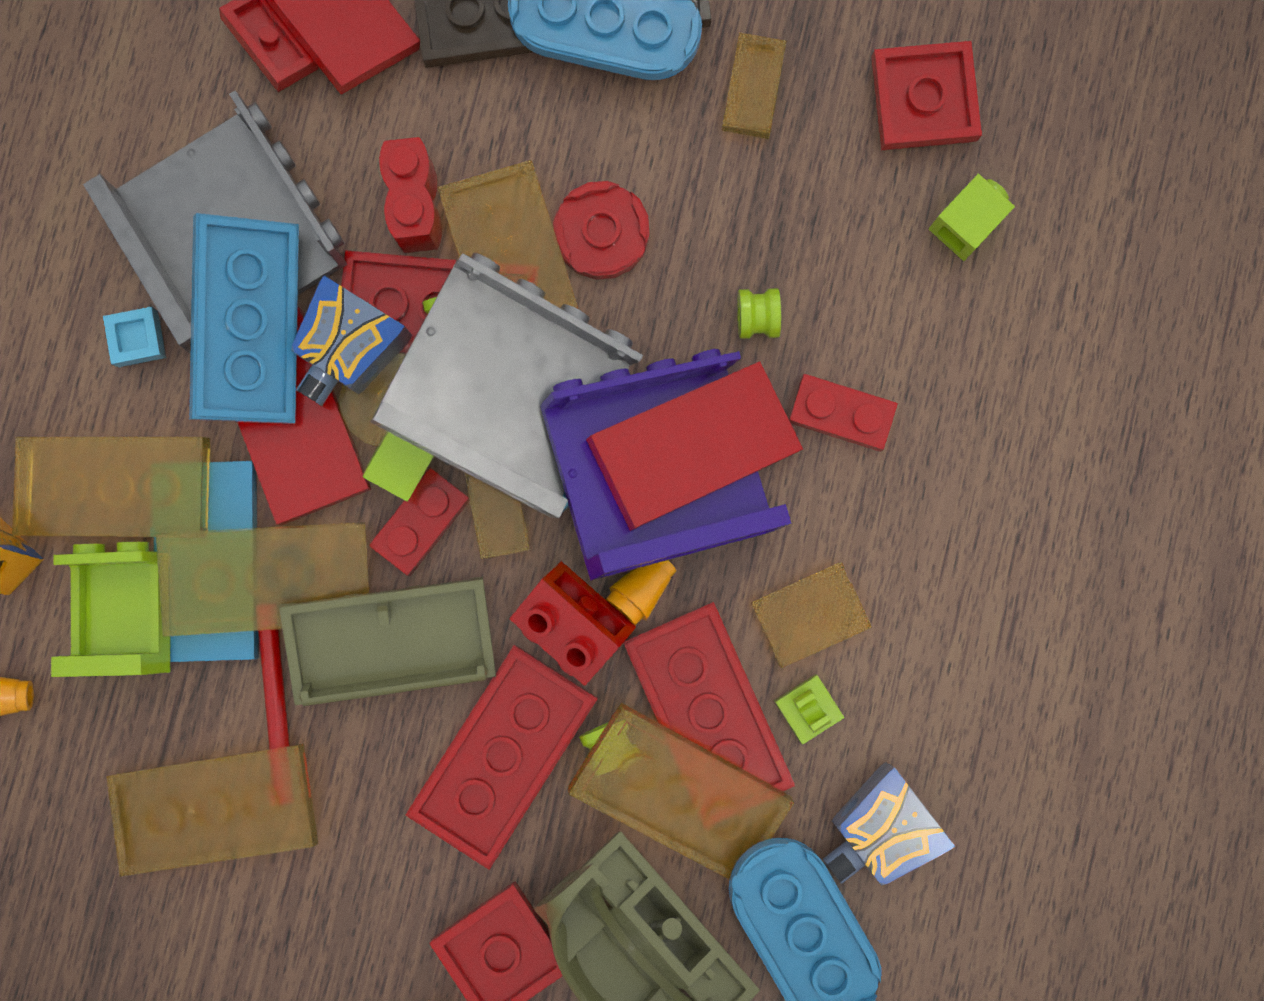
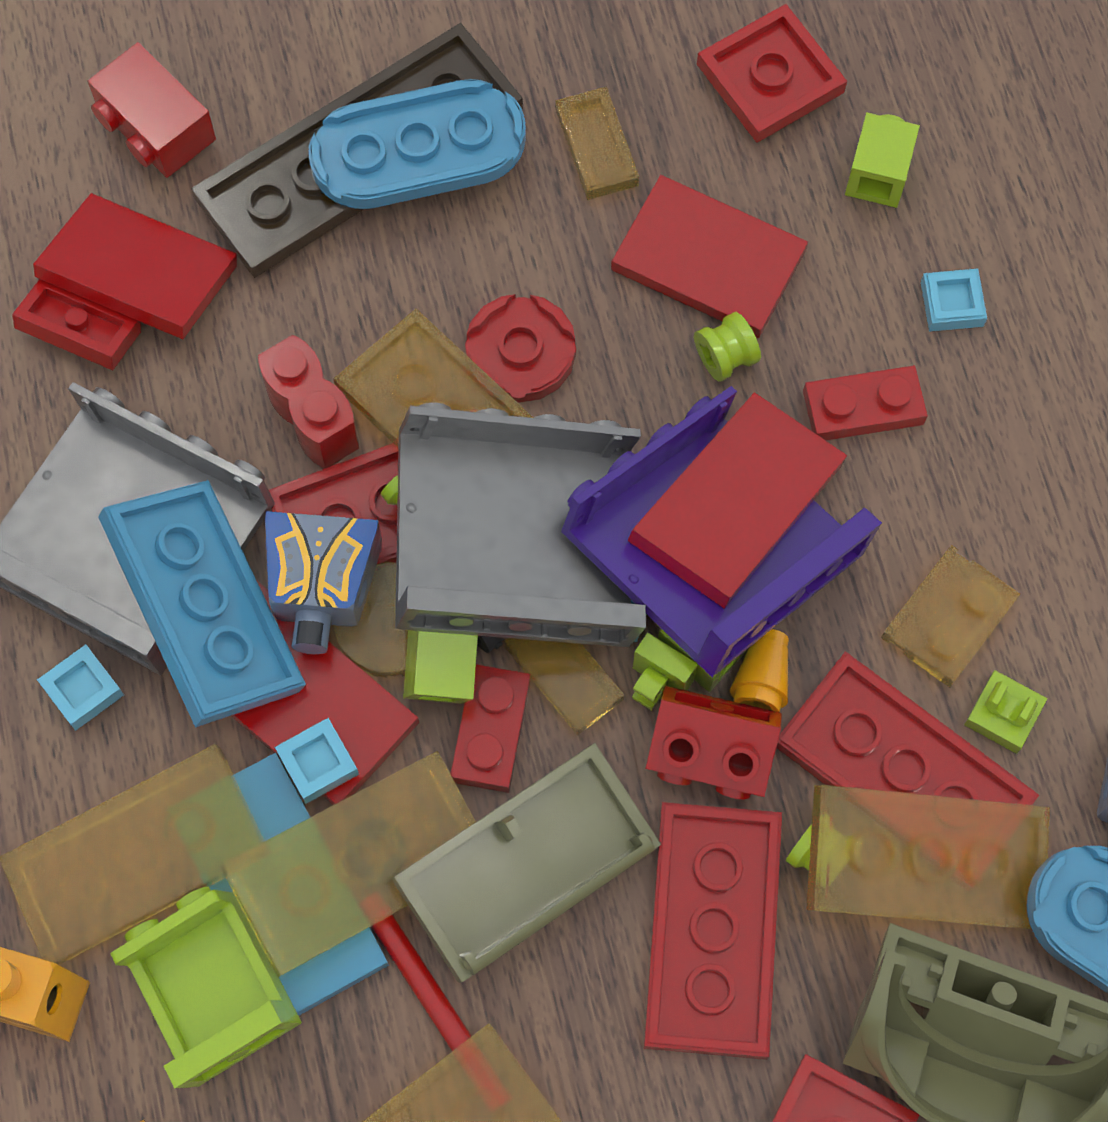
camera: 30 degrees left, 15 degrees down
(272, 486) = (317, 760): none -> medium azure plate
(565, 547) = (660, 668): none -> lime tile
(789, 227) = (708, 254): none -> red tile
(962, 362) = (953, 300): none -> medium azure tile

